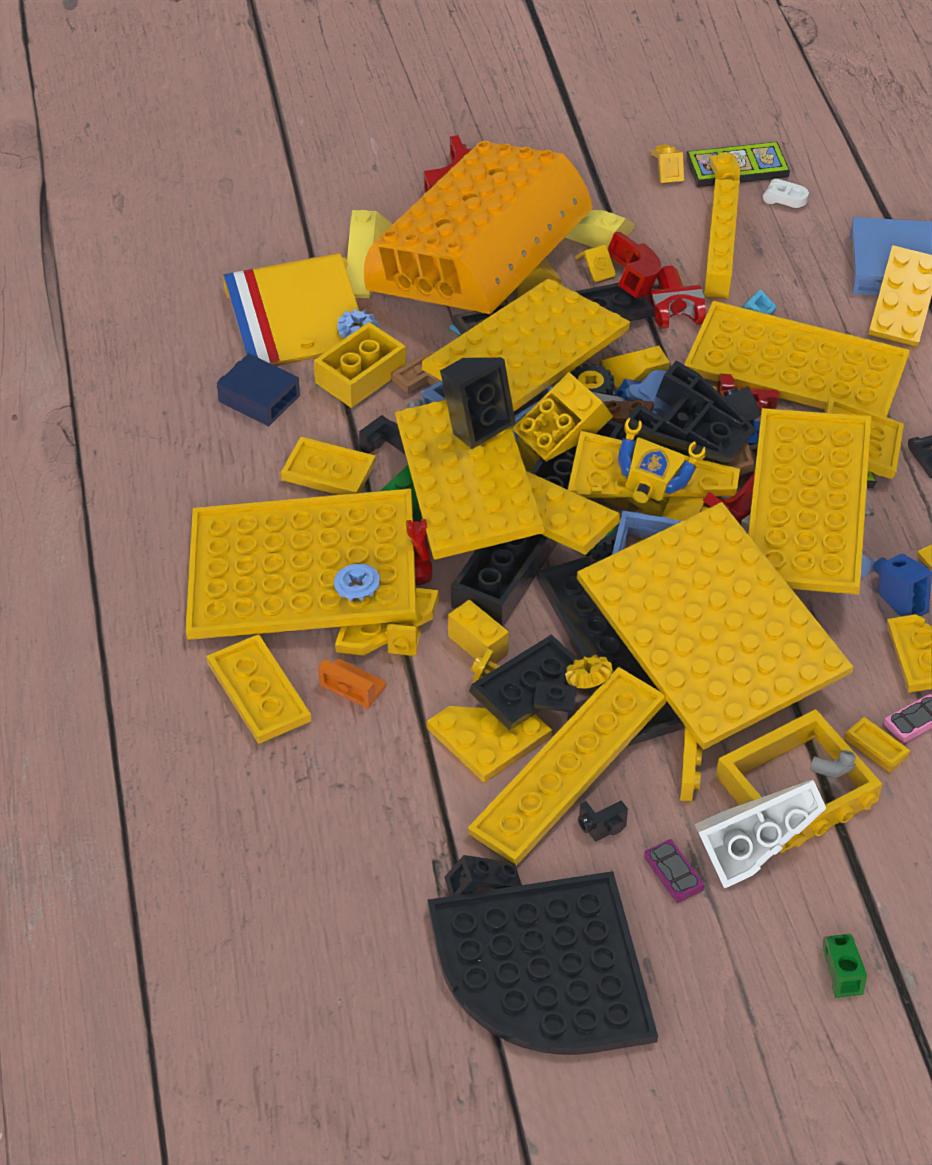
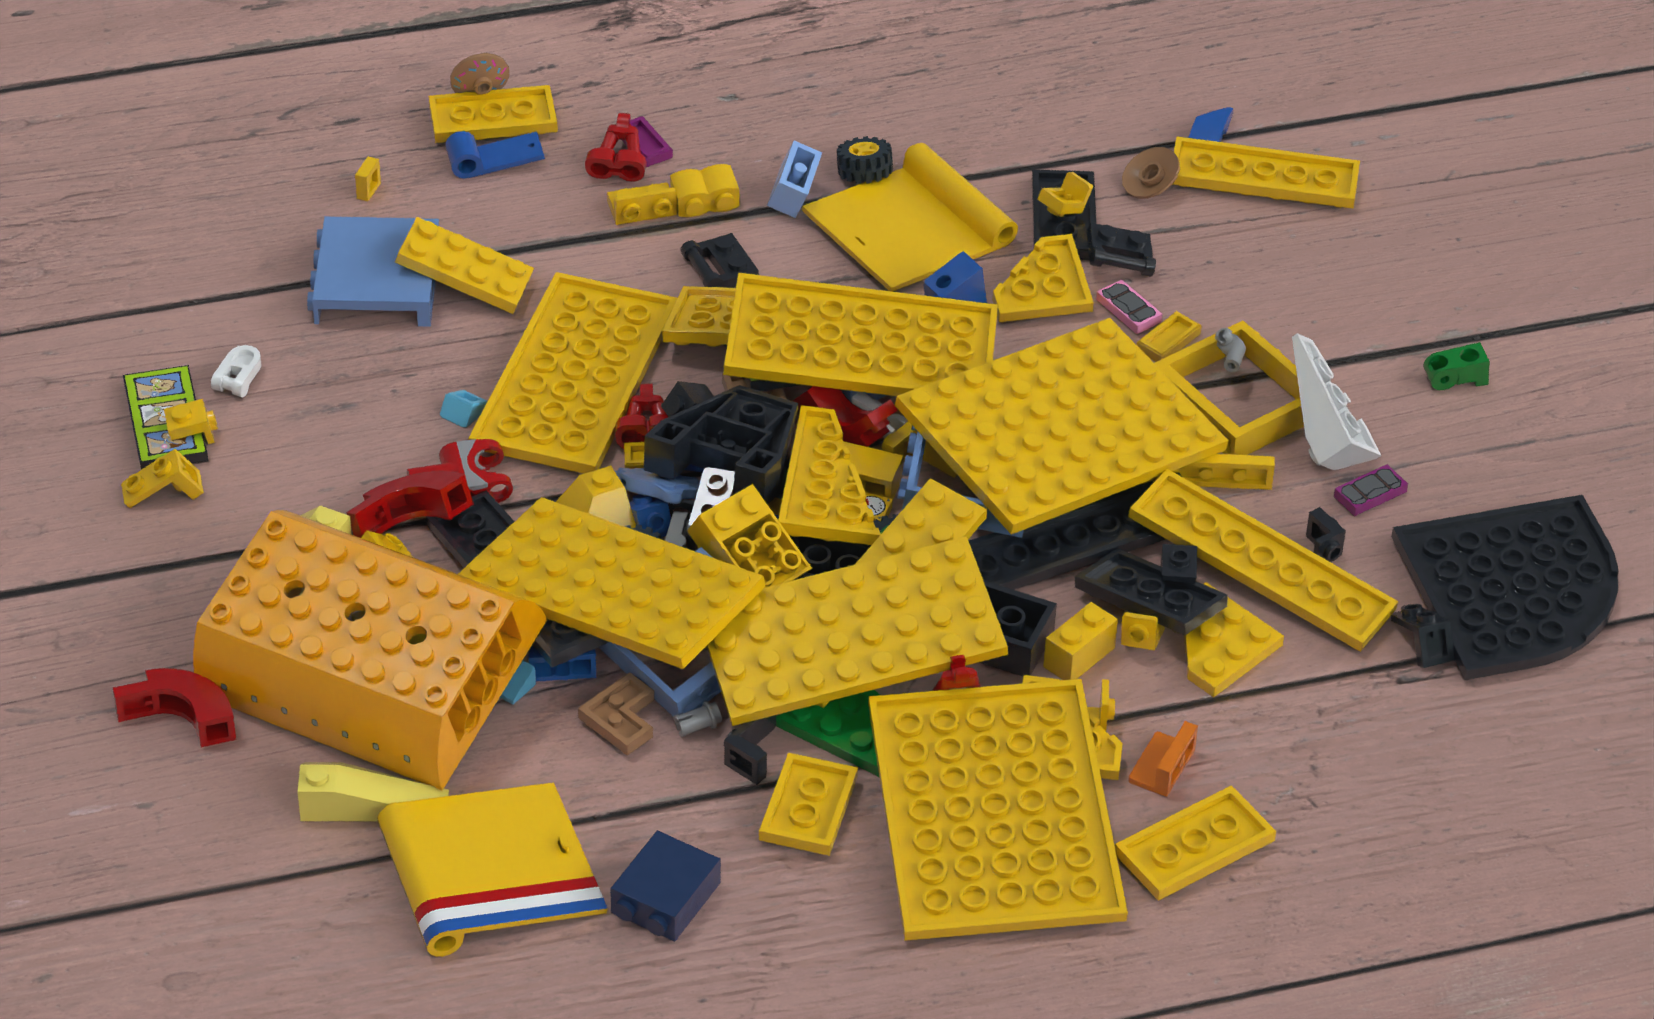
camera: 95 degrees left, 5 degrees down
(346, 322) = (531, 796): light blue gear -> none
(356, 573) = (1043, 720): light blue gear -> none
(359, 364) = (619, 773): yellow brick -> none
(478, 398) = (792, 579): black slope -> none
(578, 675) = (1150, 537): yellow gear -> none
(653, 468) = (841, 453): torso -> none
(721, 238) = (339, 427): yellow brick -> none

